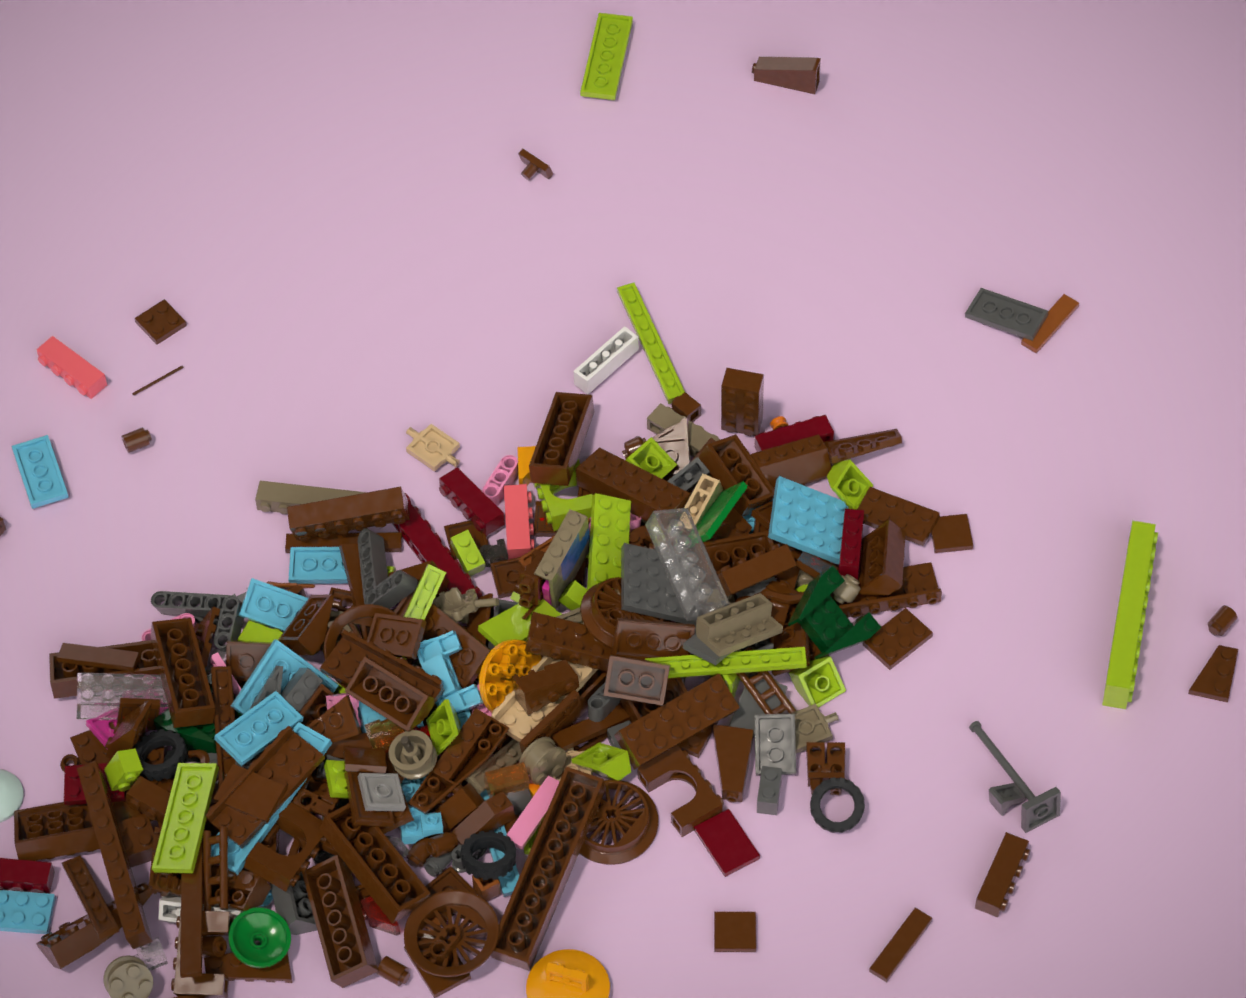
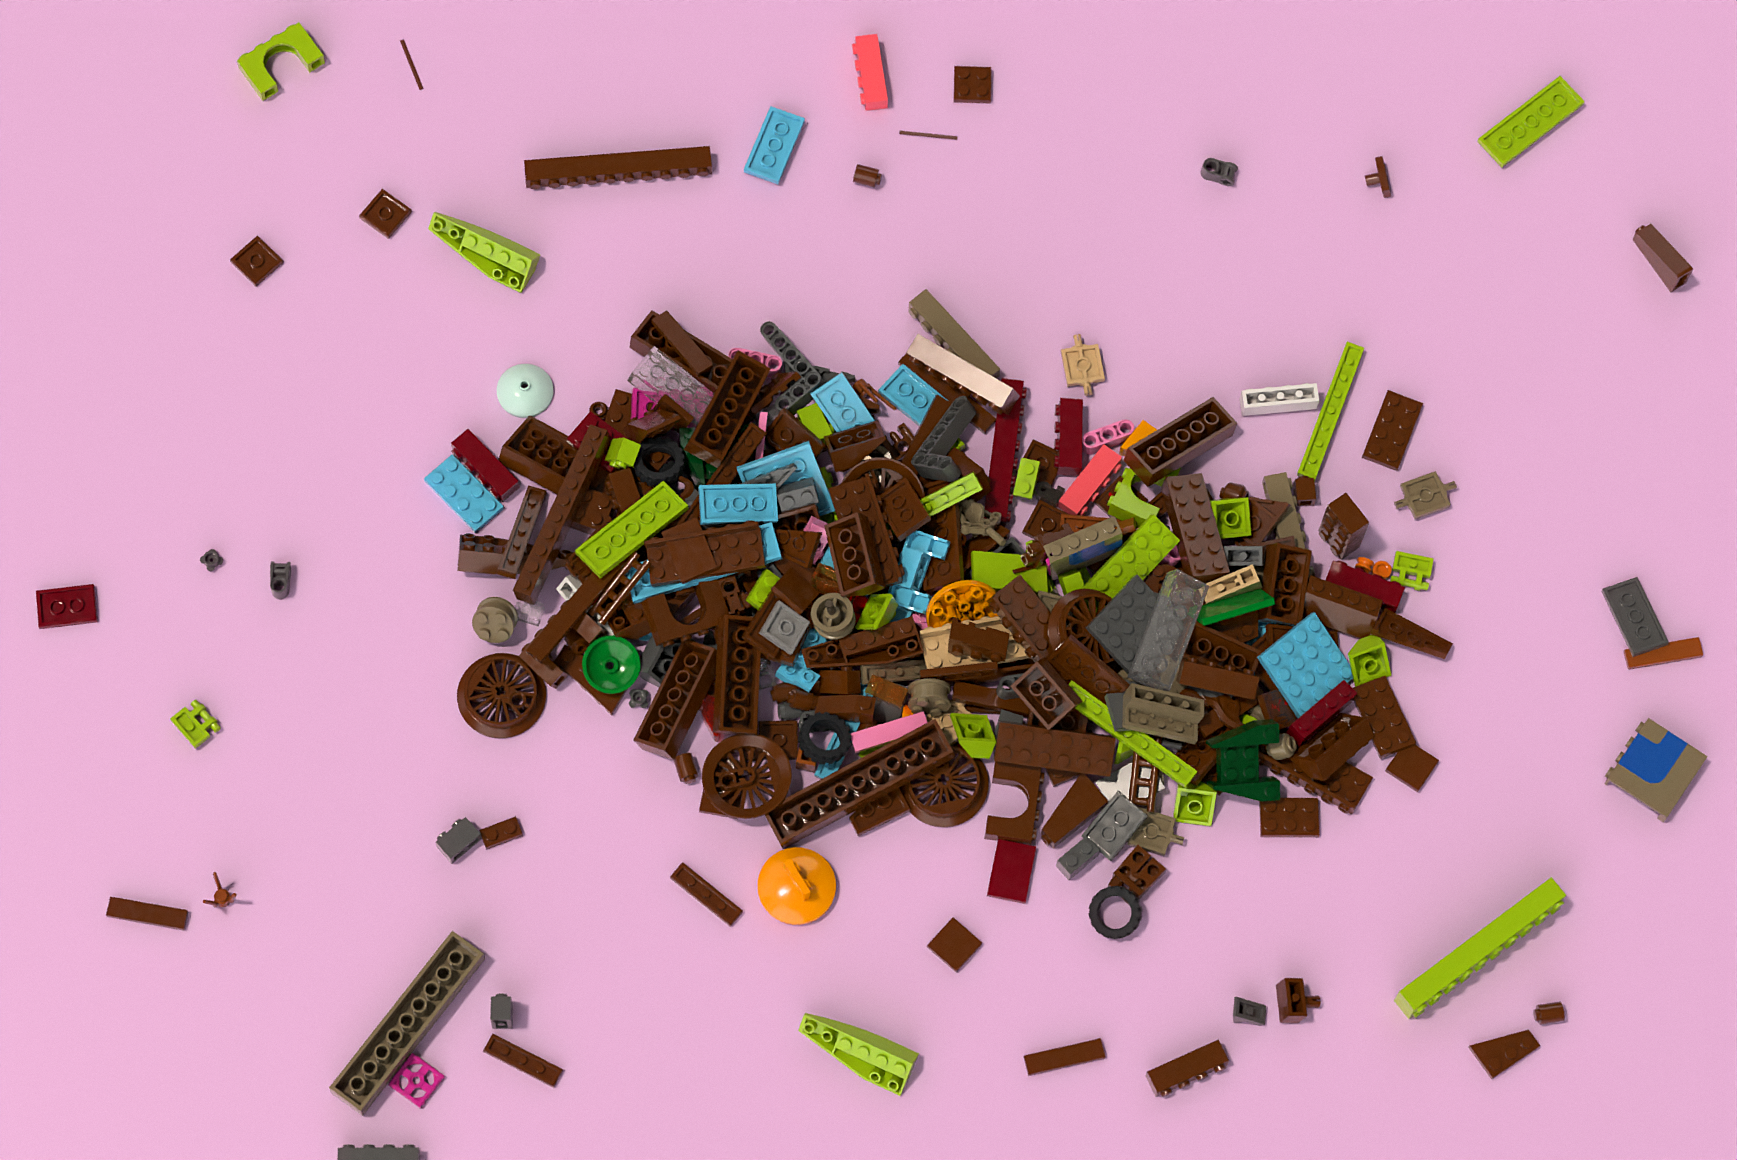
camera: 35 degrees right, 15 degrees up
(303, 945) = (639, 703): none -> dark grey plate
(408, 246) = (1220, 171): none -> dark grey piece
(581, 881) = (879, 812): none -> reddish brown wing
(708, 323) = (1392, 430): none -> reddish brown plate
(776, 346) = (1425, 495): none -> dark tan plate
(794, 417) = (1382, 568): none -> orange tile
(815, 398) = (1414, 565): none -> lime plate
(1032, 761) = (1292, 1000): none -> reddish brown brick
(1038, 808) = (1260, 1042): dark grey tile -> none
(1124, 398) = (1656, 767): none -> dark tan panel

